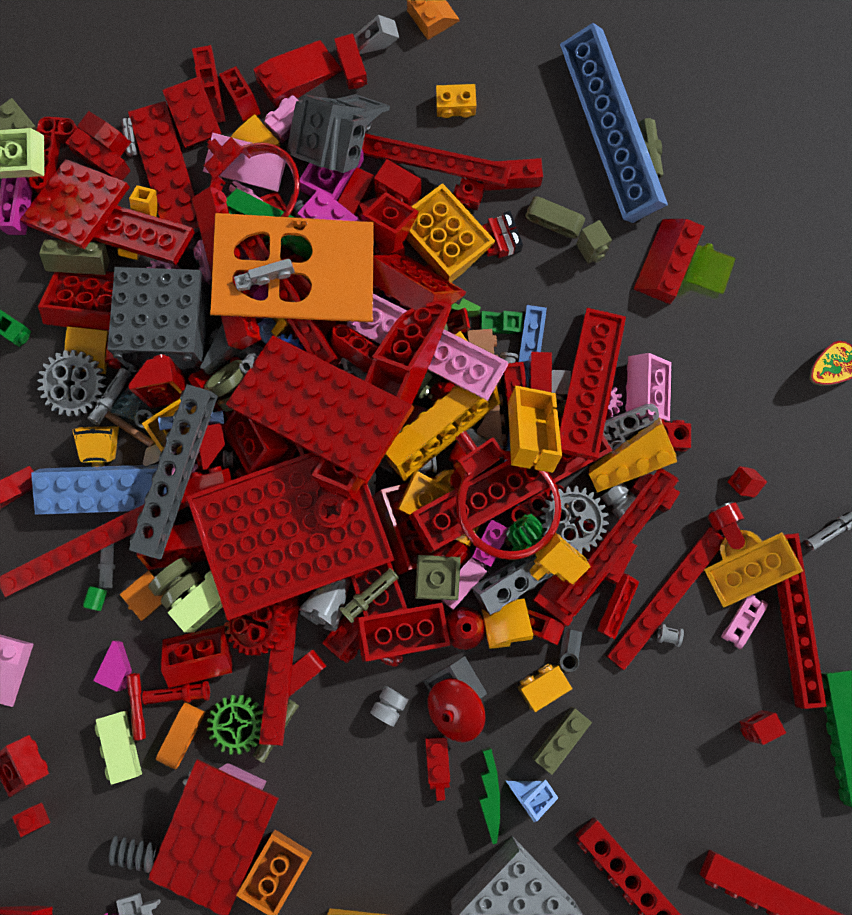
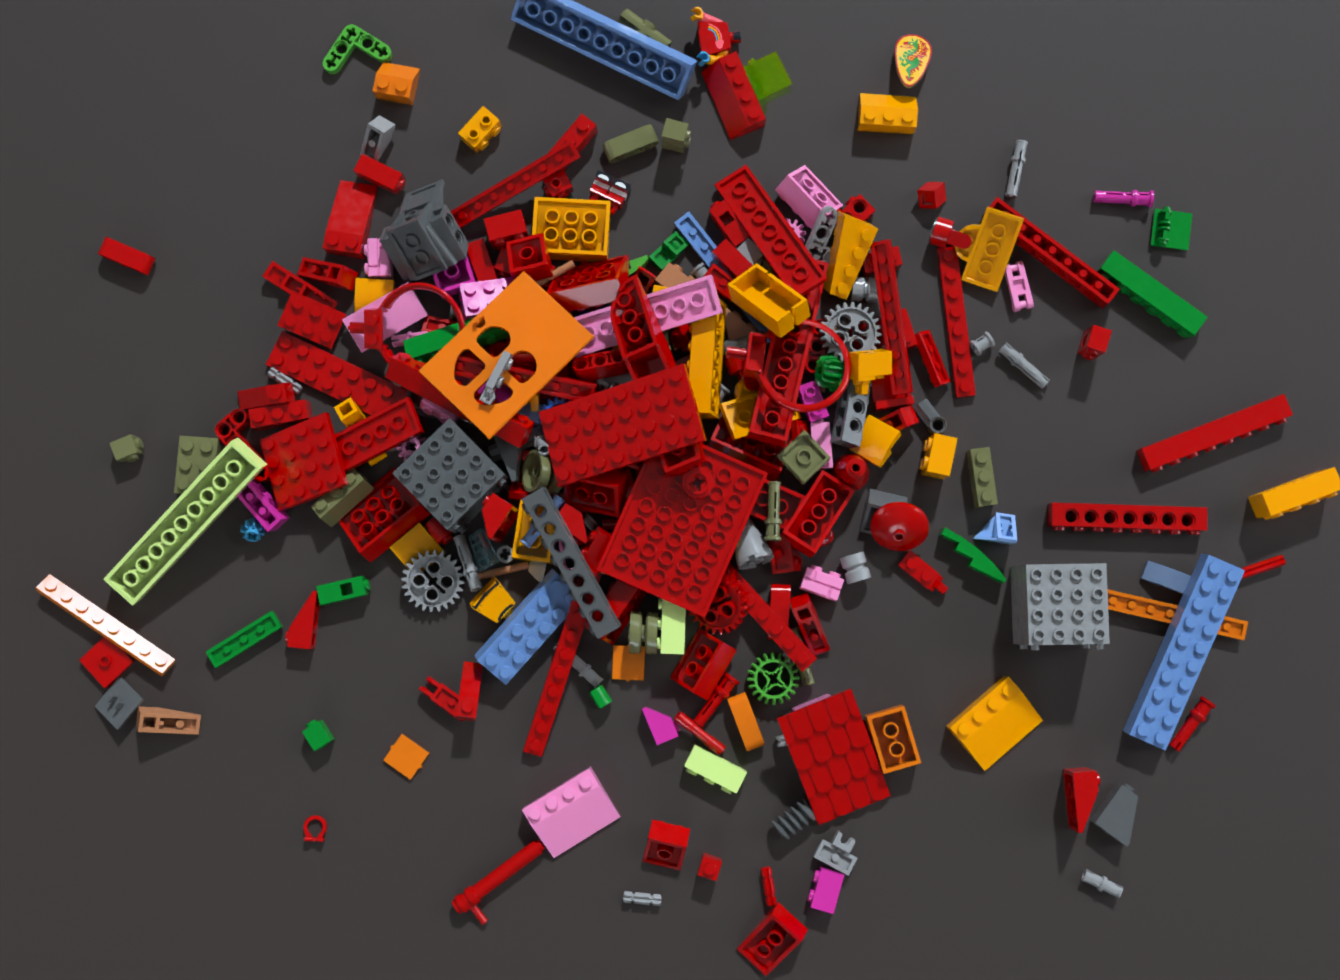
camera: 40 degrees left, 5 degrees up
(59, 885) = (768, 885): none -> red axle
(308, 711) = (809, 623): none -> red slope
(351, 691) = (821, 583): none -> bright pink brick
(397, 252) = (557, 272): none -> nougat bar
(567, 345) = (728, 223): none -> red brick
(686, 687) = (1020, 362): none -> light grey pin
(698, 200) = (713, 37): none -> torso
(774, 387) = (887, 113): none -> light orange slope

